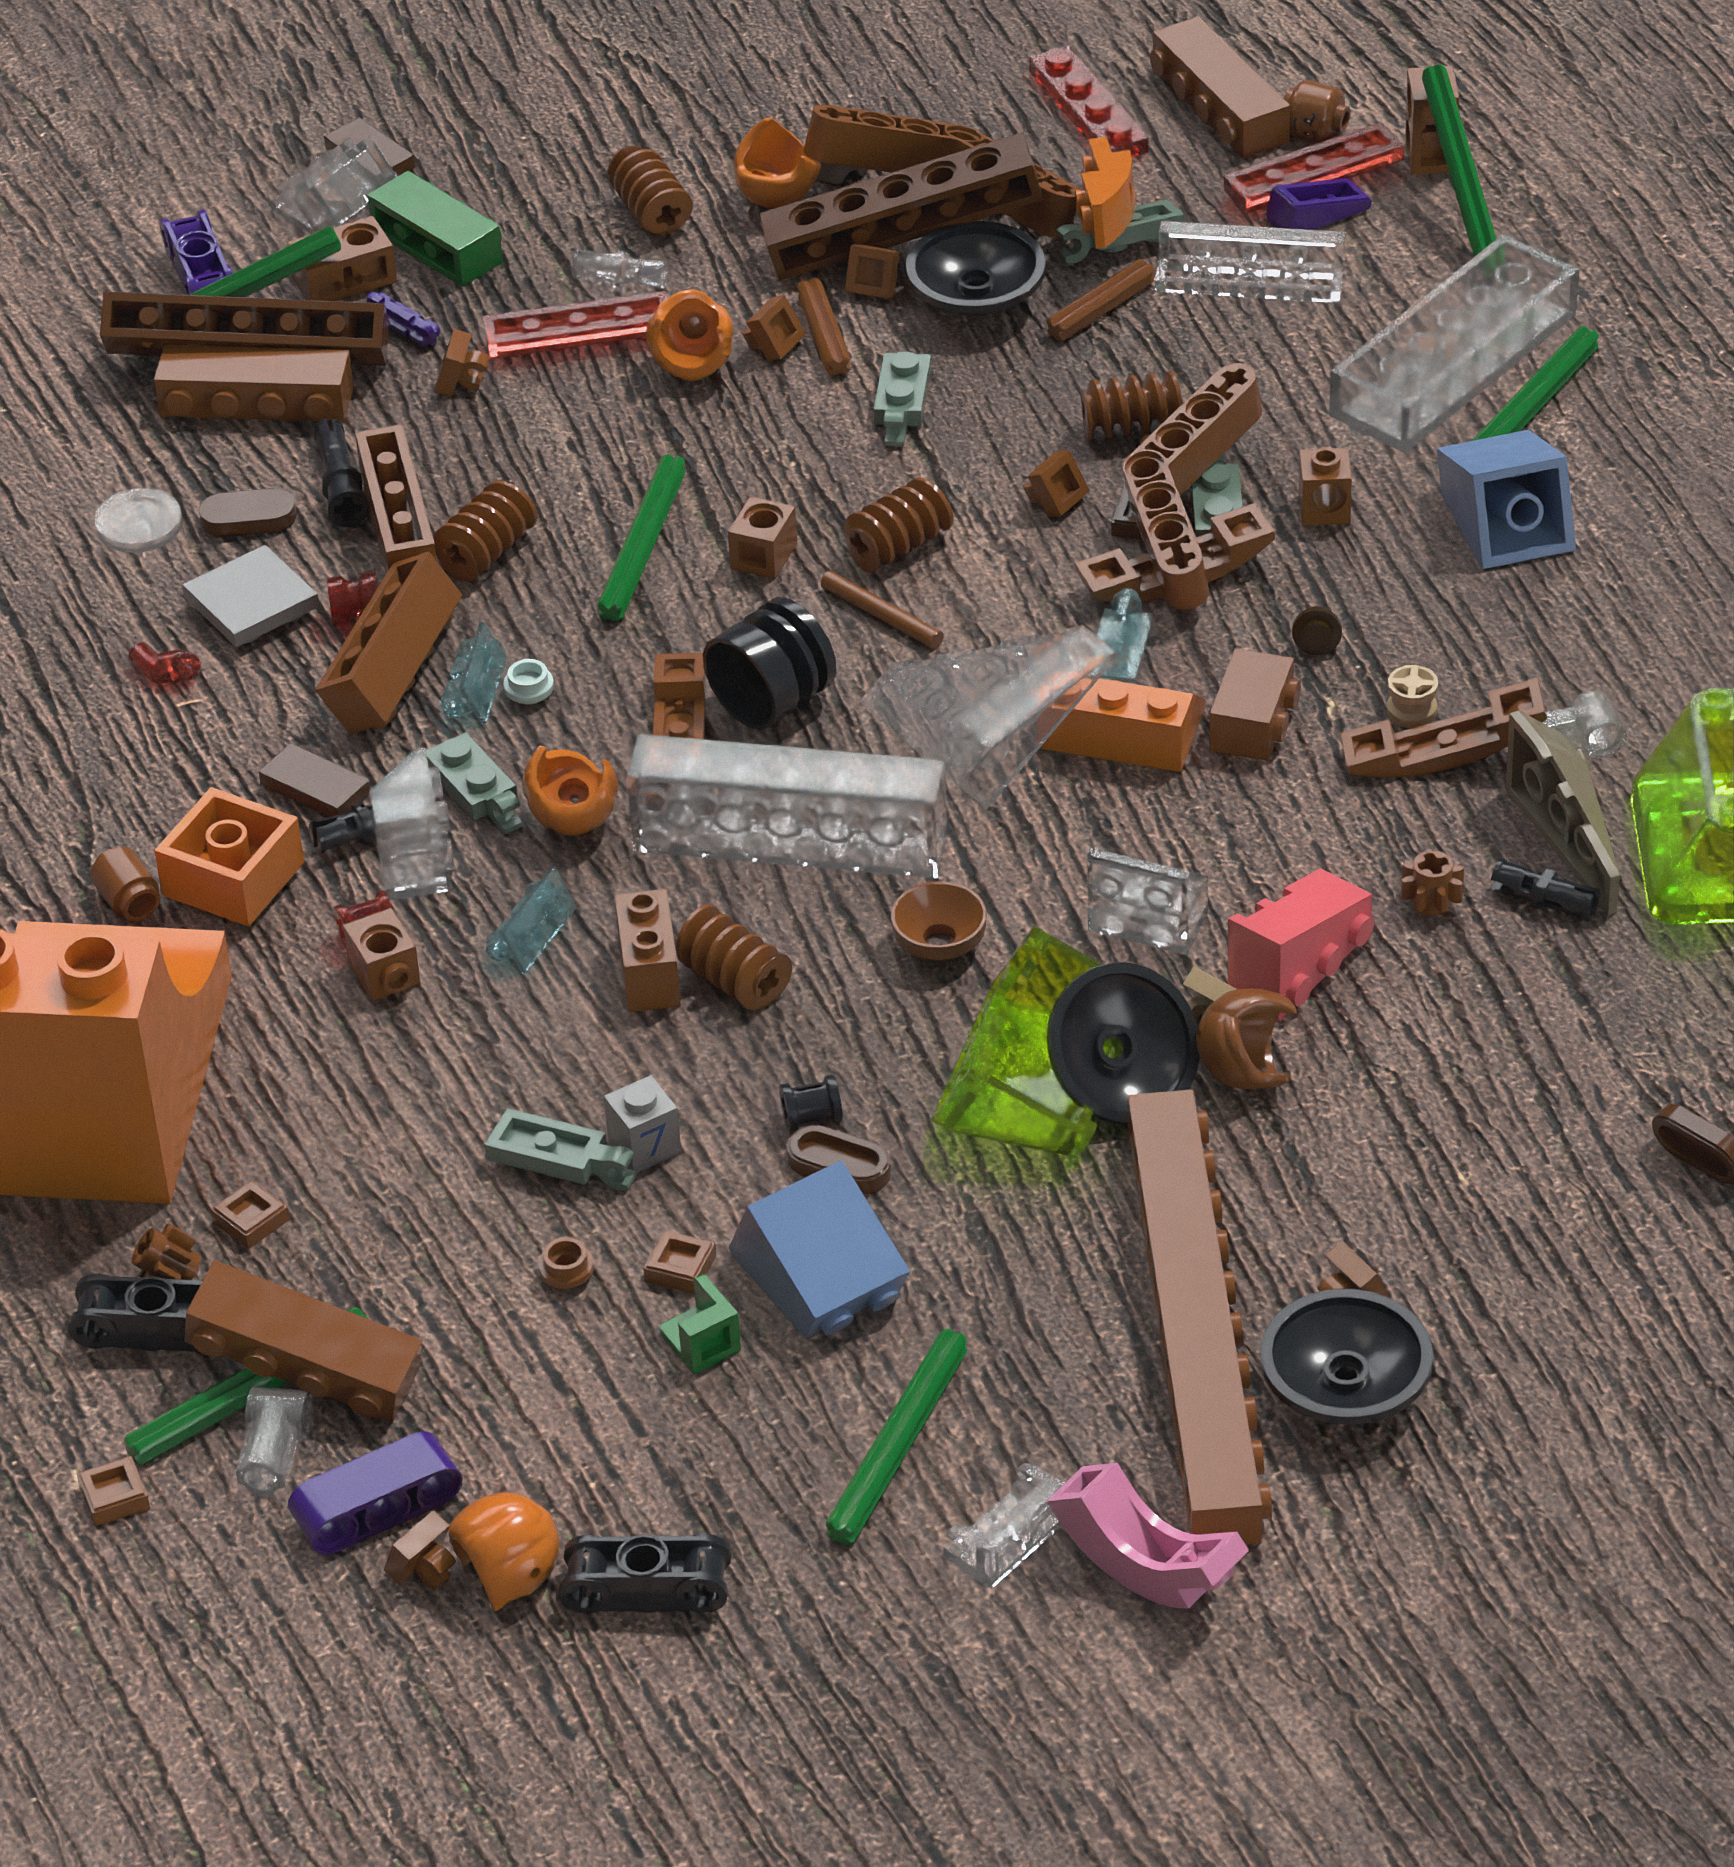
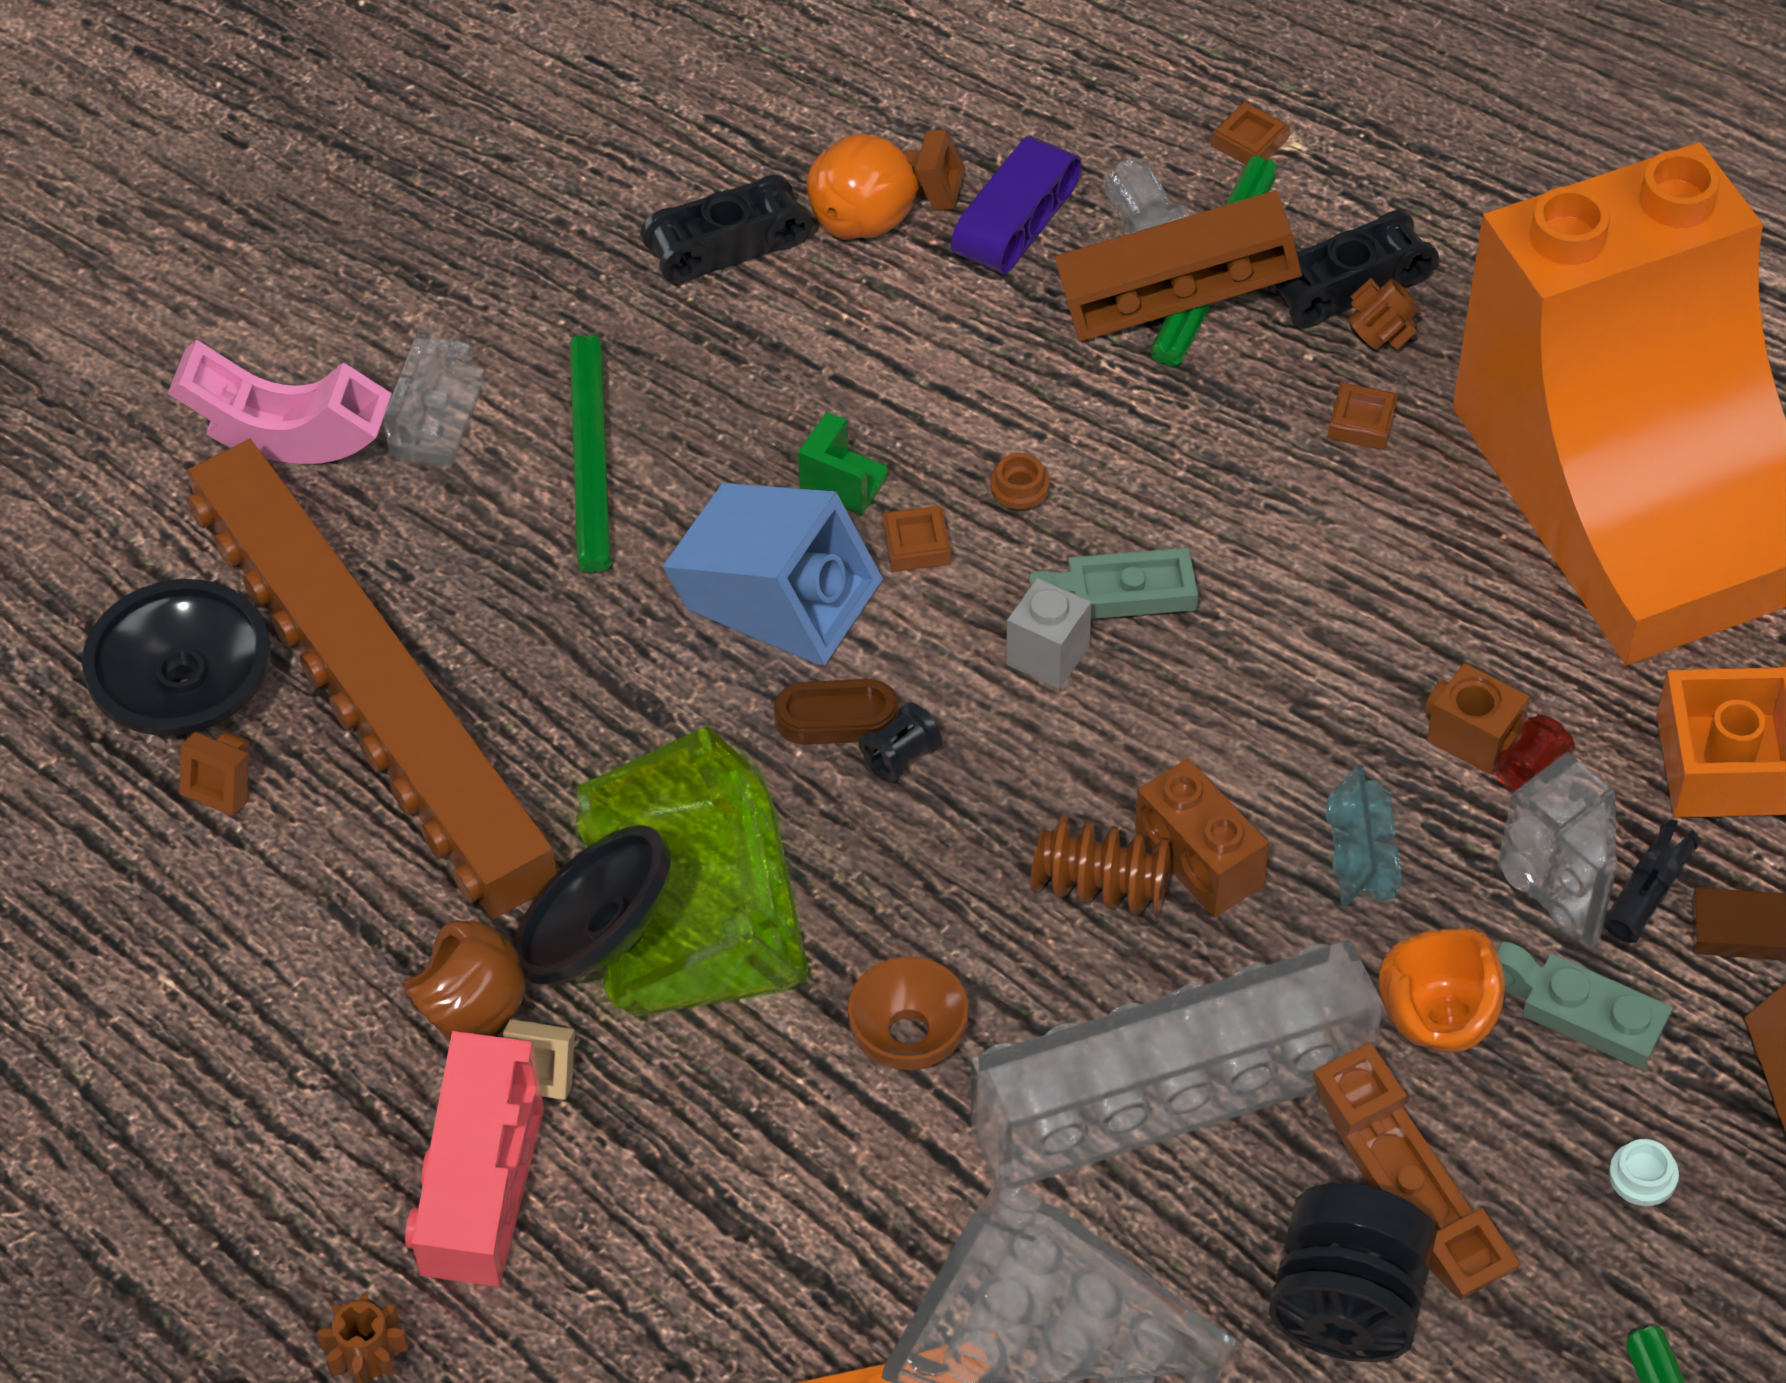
camera: 150 degrees right, 10 degrees up
(474, 676) = (1701, 1139): clear light blue hinge -> none
(1145, 901) = (685, 1137): clear slope -> none

